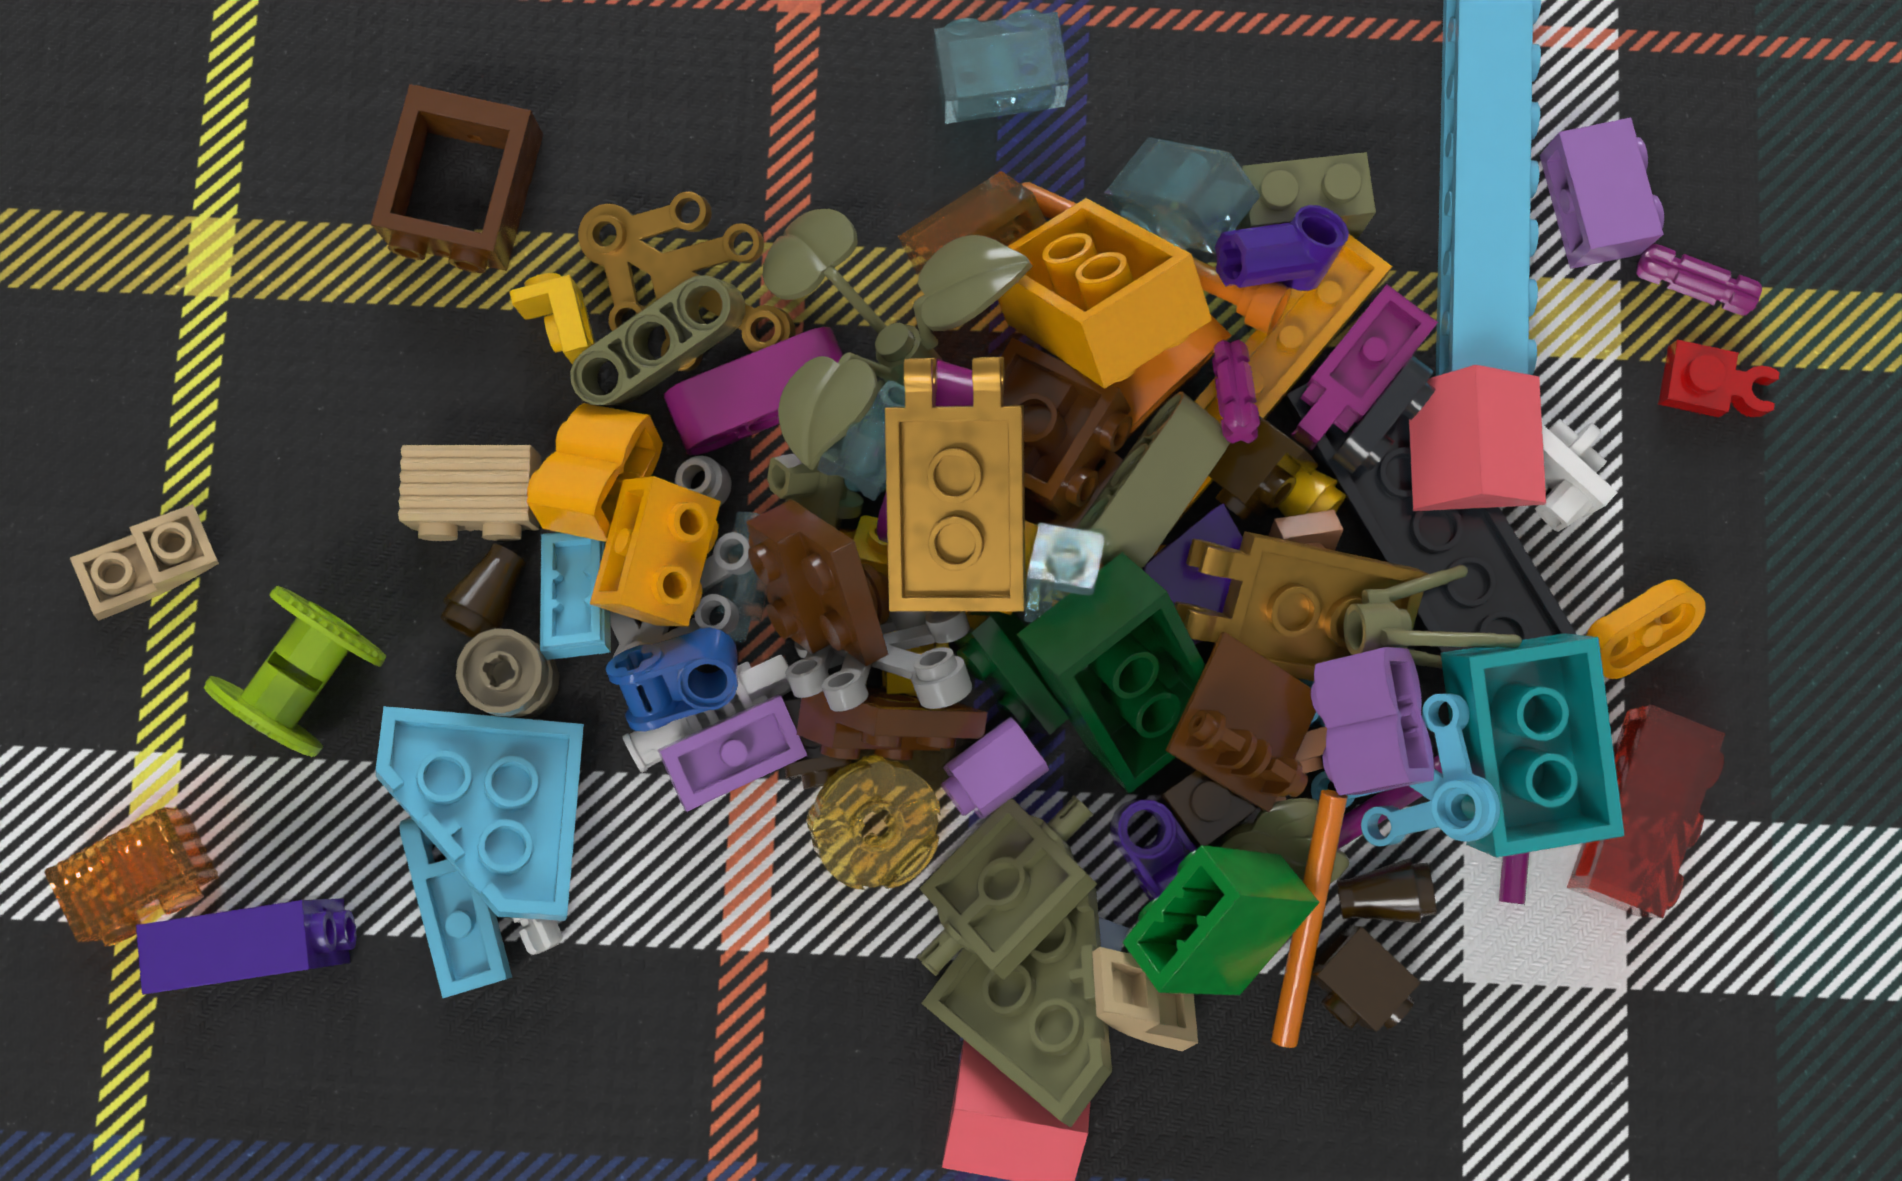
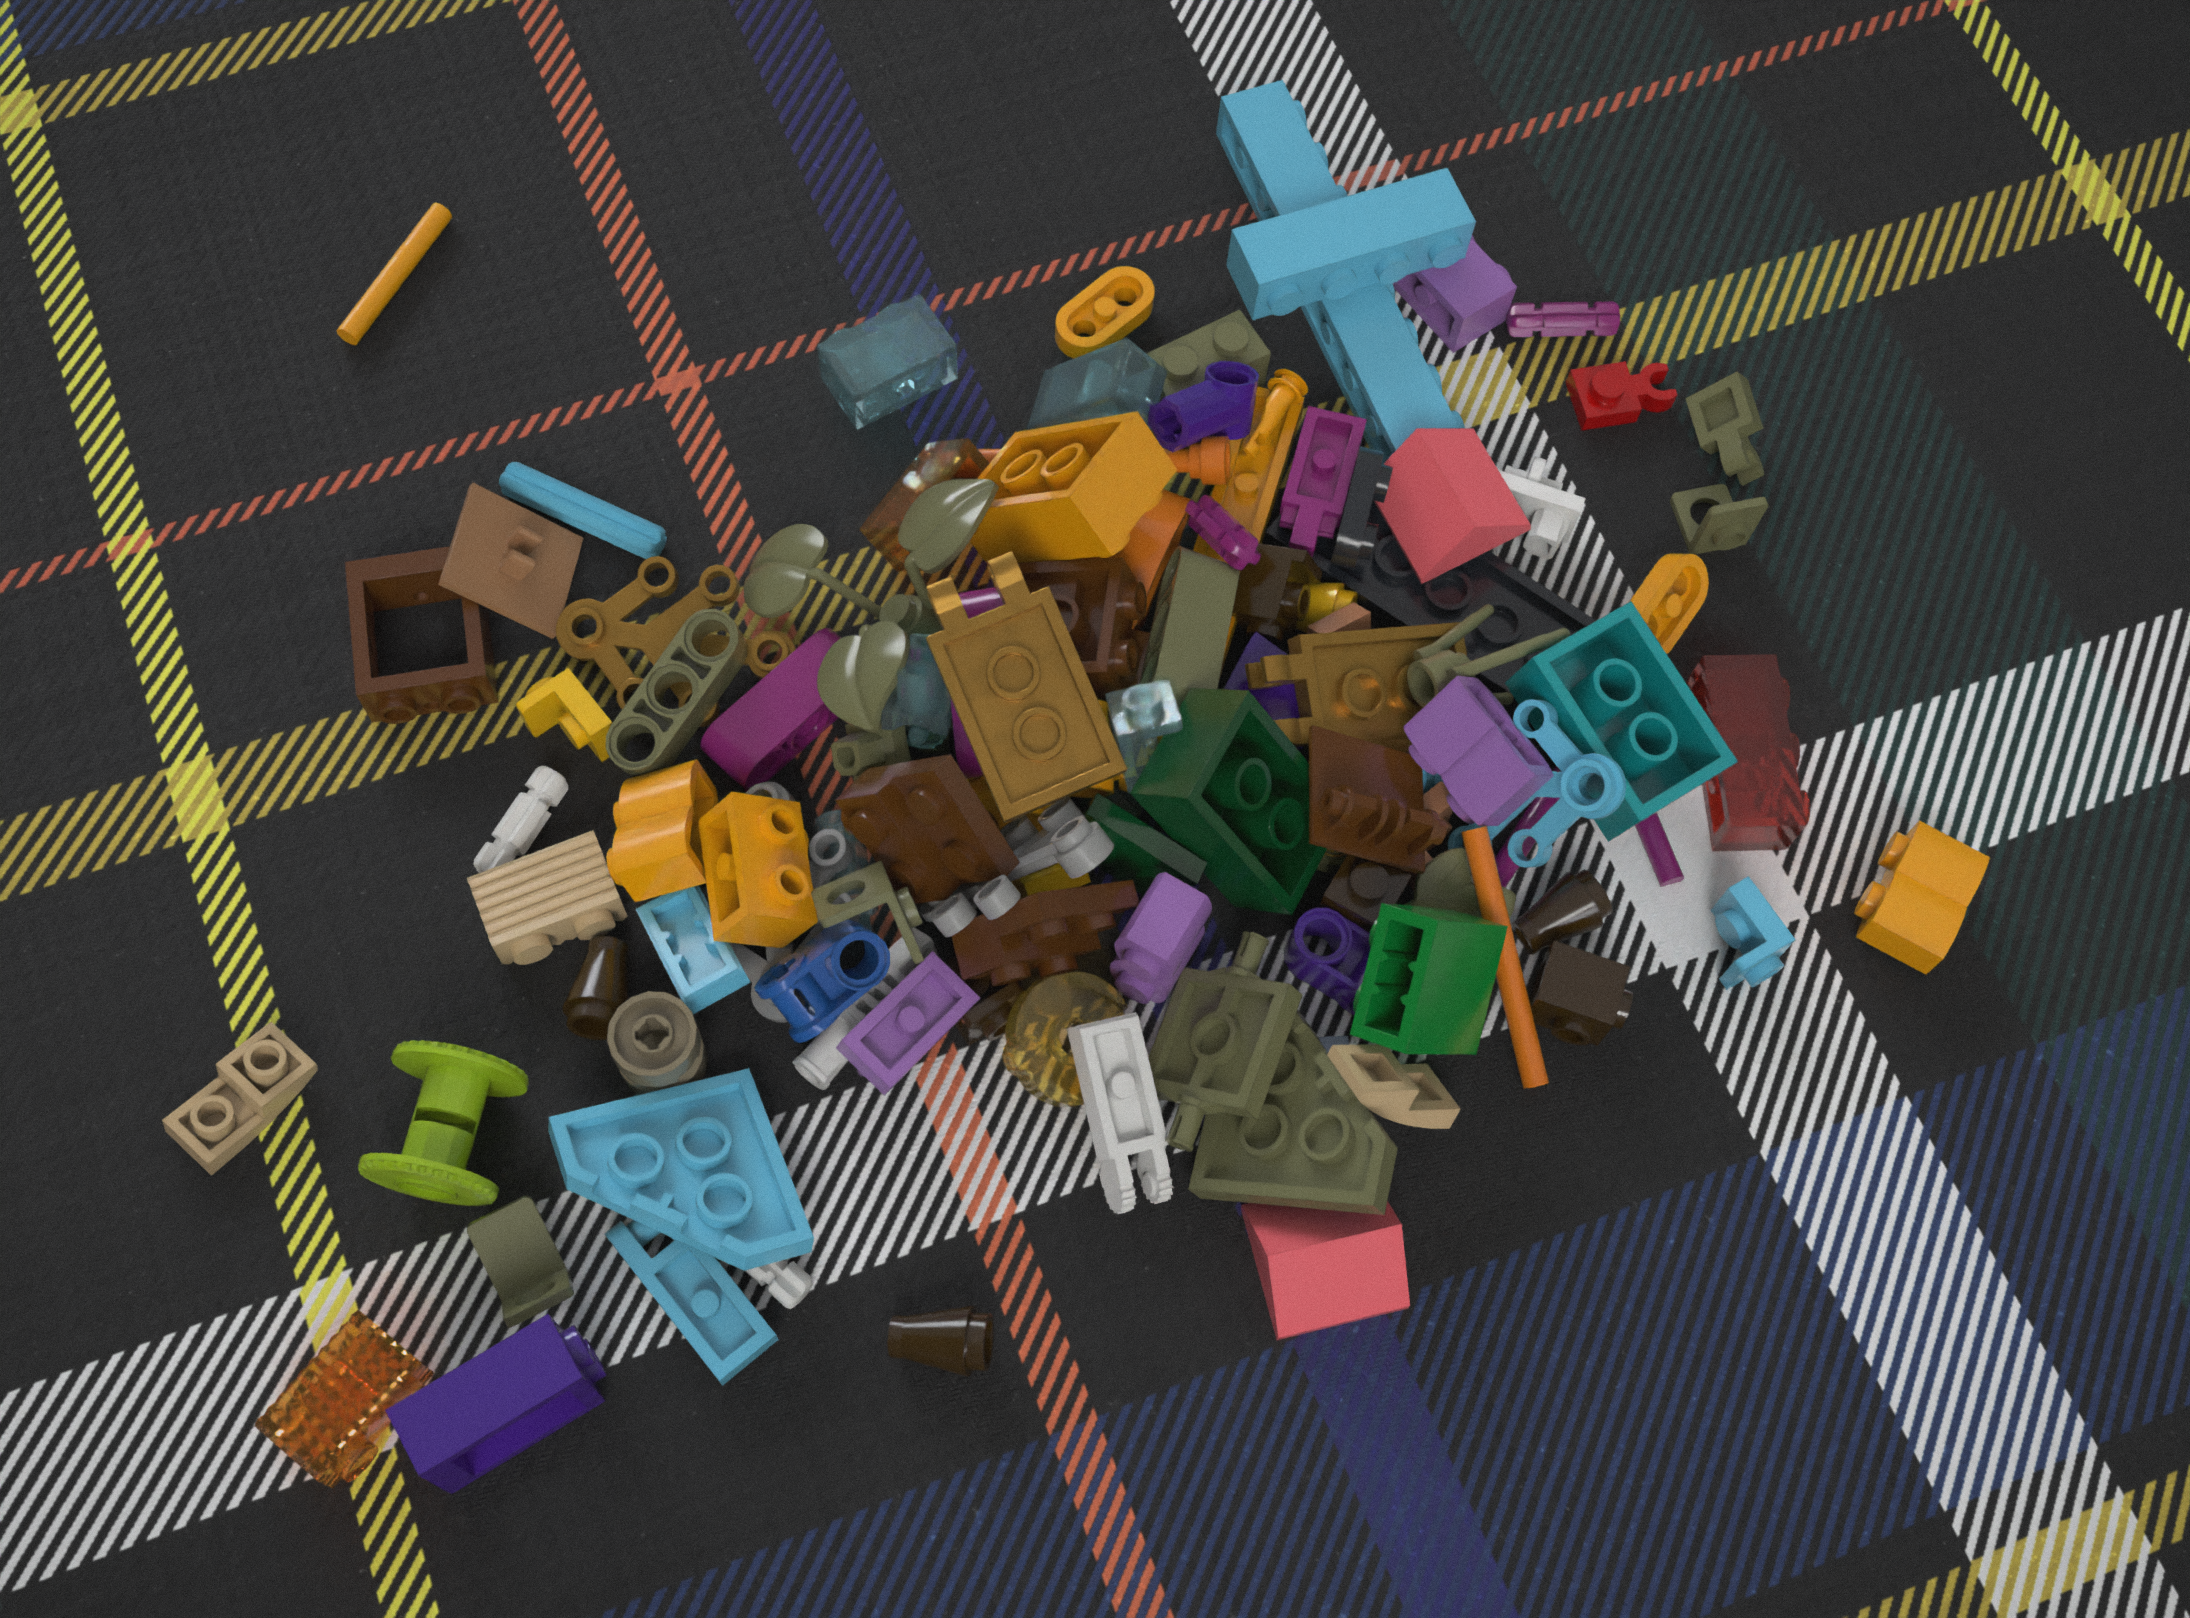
camera: 25 degrees left, 15 degrees down
(322, 820) = (521, 1260): none -> olive bracket
(478, 402) = (523, 819): none -> white axle
(563, 140) = (511, 560): none -> medium nougat piece
(651, 1044) = (944, 1339): none -> dark brown cone
(654, 108) = (582, 510): none -> medium azure axle
(750, 630) = (876, 891): none -> olive bracket
(891, 907) = (1122, 1109): none -> white hinge
(1234, 94) = (1099, 315): none -> light orange plate
(1360, 265) = (1285, 390): none -> light orange piece
(1512, 127) = (1350, 244): none -> medium azure brick
(1561, 982) = (1755, 929): none -> medium azure bracket
(1743, 576) = (1724, 525): none -> olive bracket
(1743, 1025) = (1920, 896): none -> light orange brick
(1804, 457) = (1723, 421): none -> olive plate

